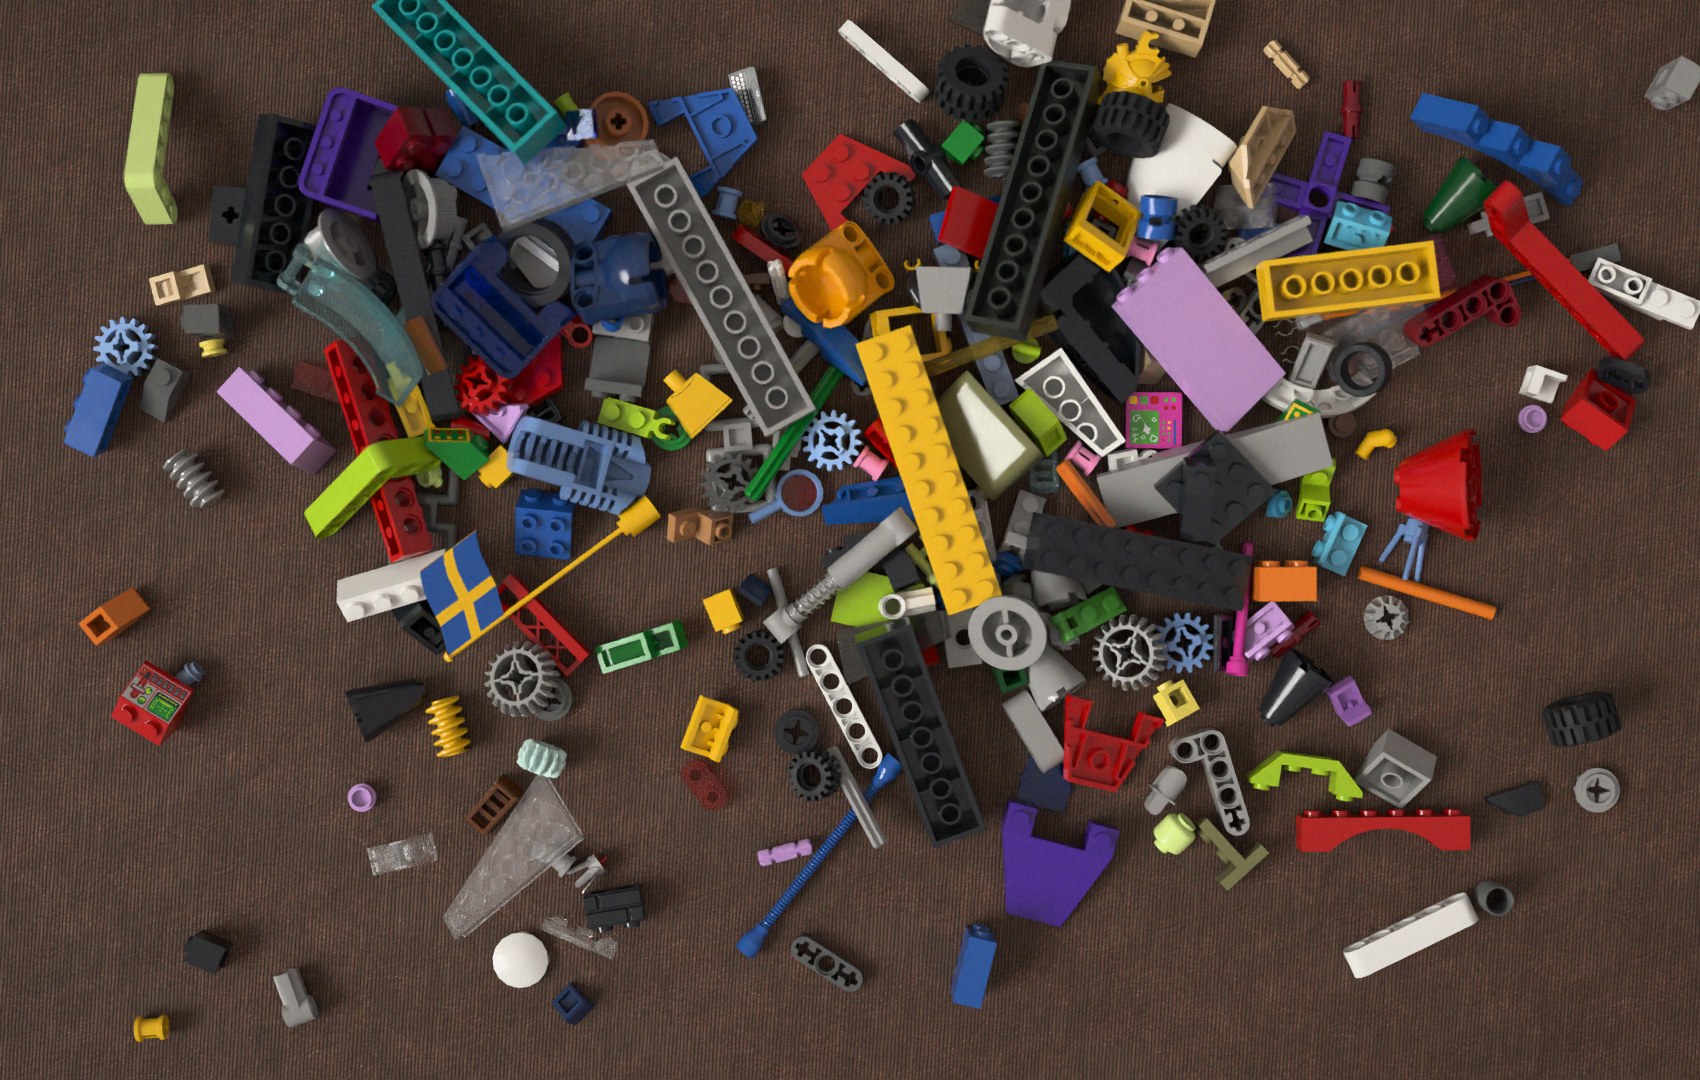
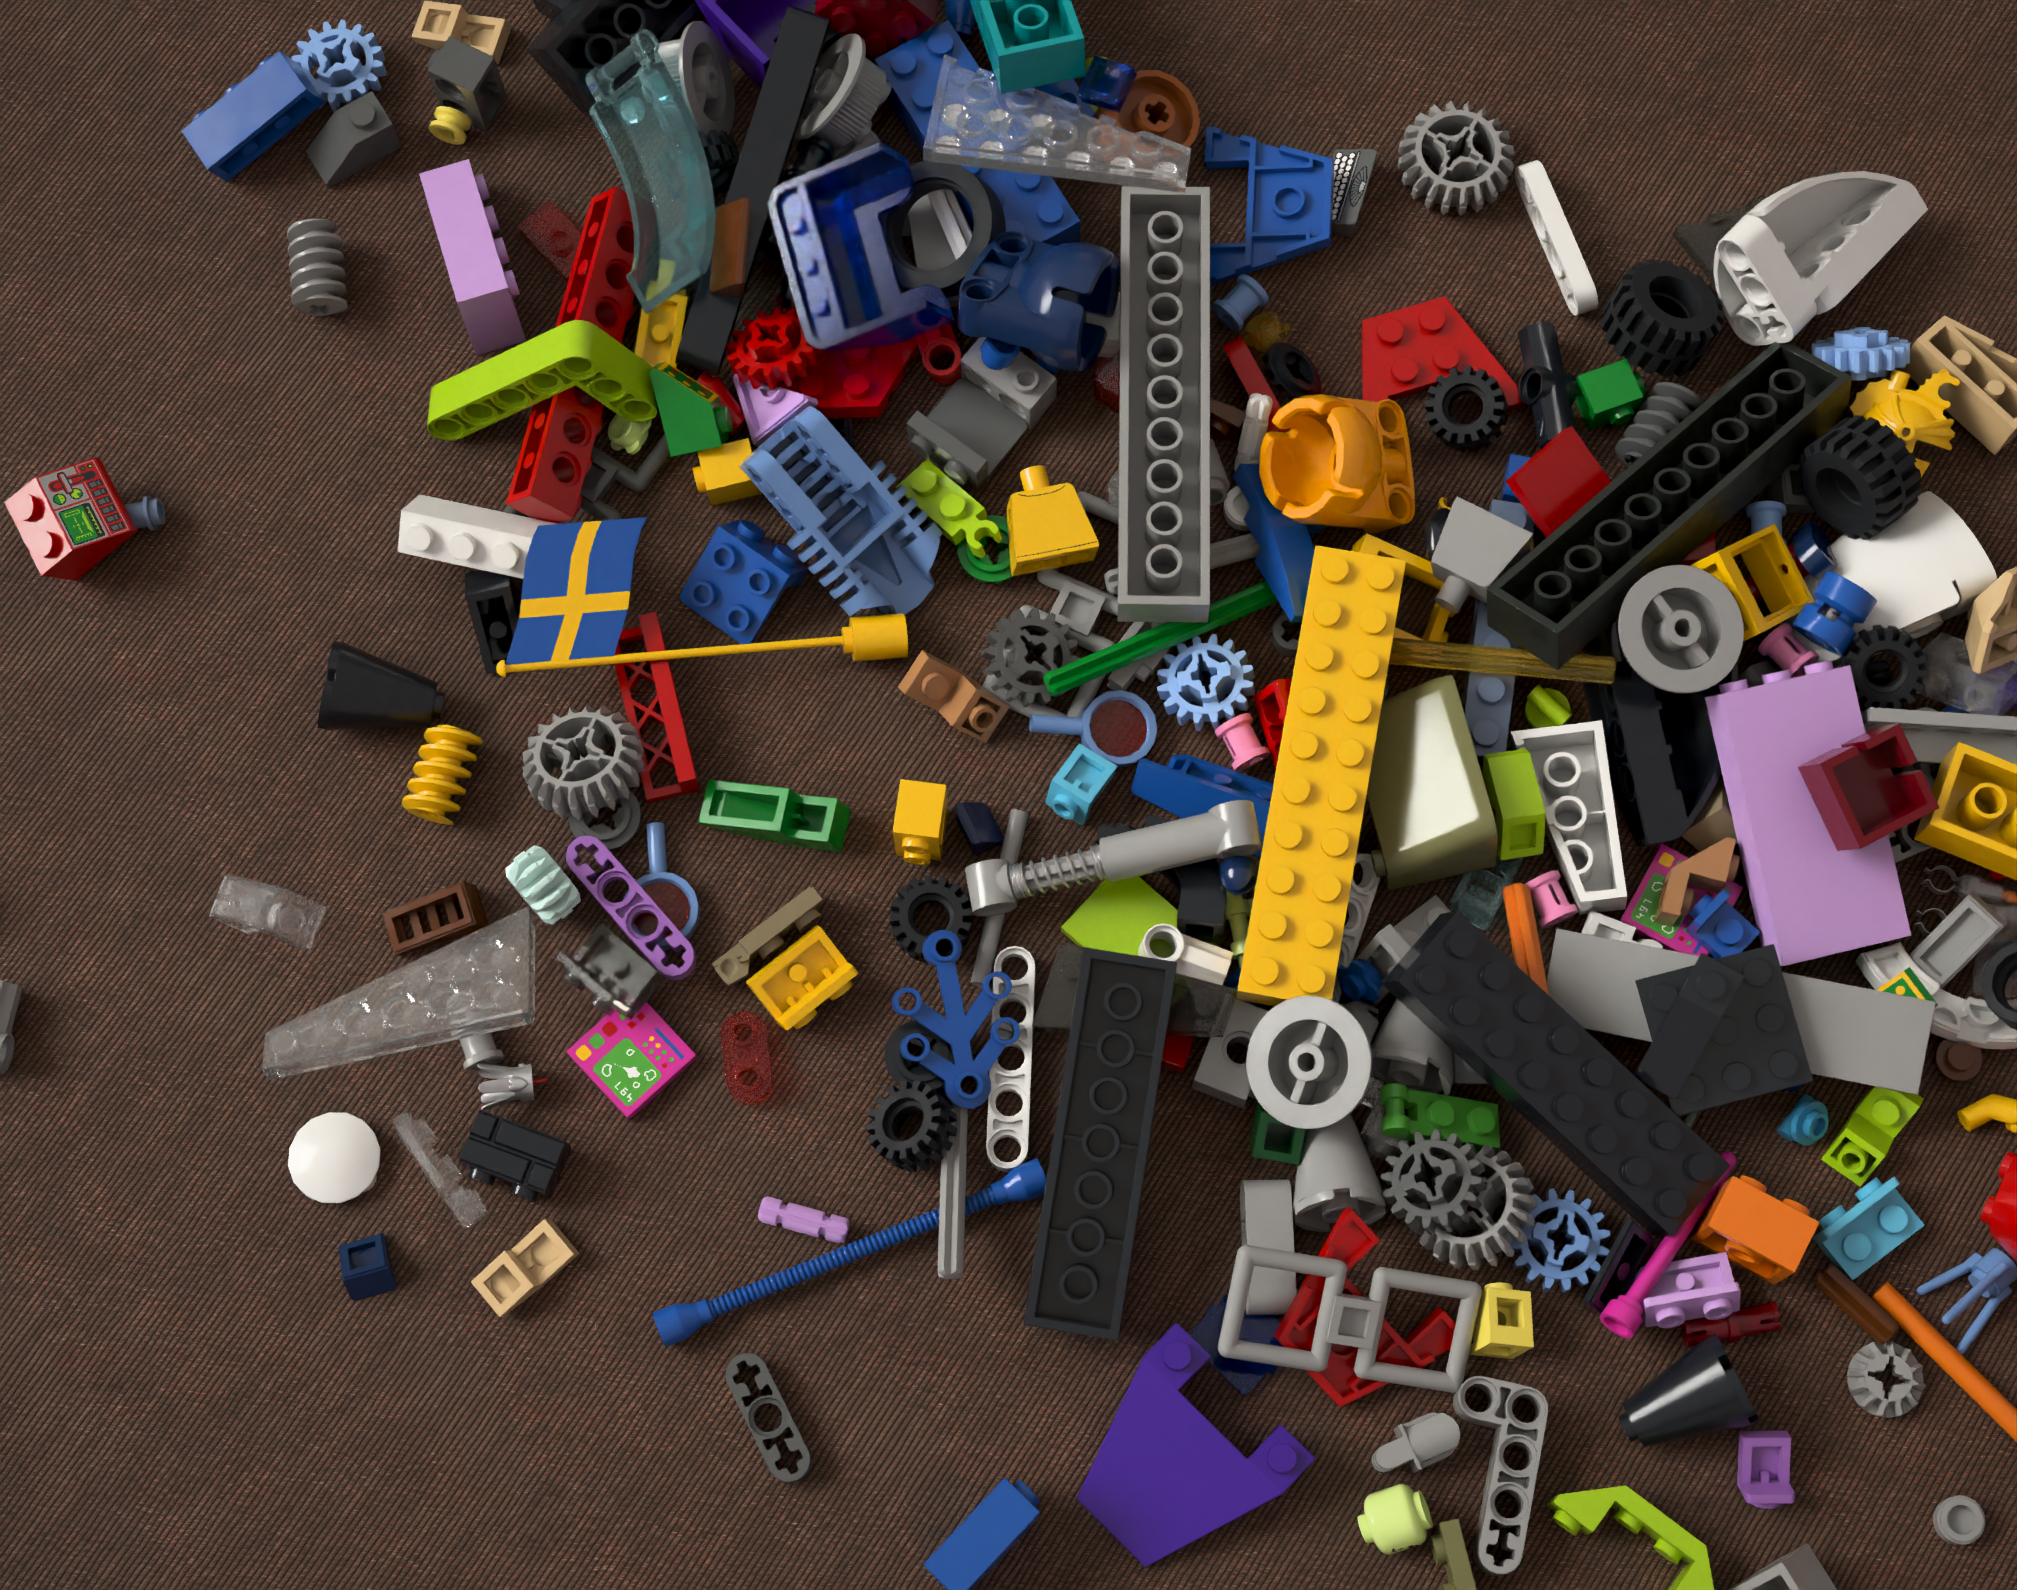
camera: 30 degrees right, 15 degrees down
(114, 617) = (96, 383): orange slope -> none
(362, 797) = (263, 806): lavender plate -> none
(597, 738) = (632, 906): none -> medium lavender beam
(607, 784) = (613, 972): none -> clear smoke bracket
(610, 729) = (667, 890): none -> piece
(643, 817) = (632, 1058): none -> tile
(655, 959) = (525, 1267): none -> tan slope
(678, 717) = (767, 936): none -> dark tan hinge
(796, 536) = (1079, 784): none -> medium azure bracket
(800, 67) = (1431, 138): none -> light grey gear
(808, 709) = (957, 1026): none -> blue plant
(913, 548) = (1238, 874): none -> dark blue hinge
(1081, 282) = (1680, 629): none -> light grey piece
(1093, 42) = (1863, 352): none -> light blue gear
(1096, 648) = (1413, 1177): none -> dark grey gear
(1098, 750) = (1349, 1319): none -> light grey bar
(1125, 177) = (1814, 550): none -> dark blue beam
(1160, 395) = (1703, 871): none -> medium nougat slope
(1182, 424) = (1720, 926): none -> blue bracket
(1227, 319) = (1859, 792): none -> dark red piece
(1352, 587) = (1856, 1304): none -> reddish brown axle
(1458, 669) = (1959, 1520): none -> light grey tile

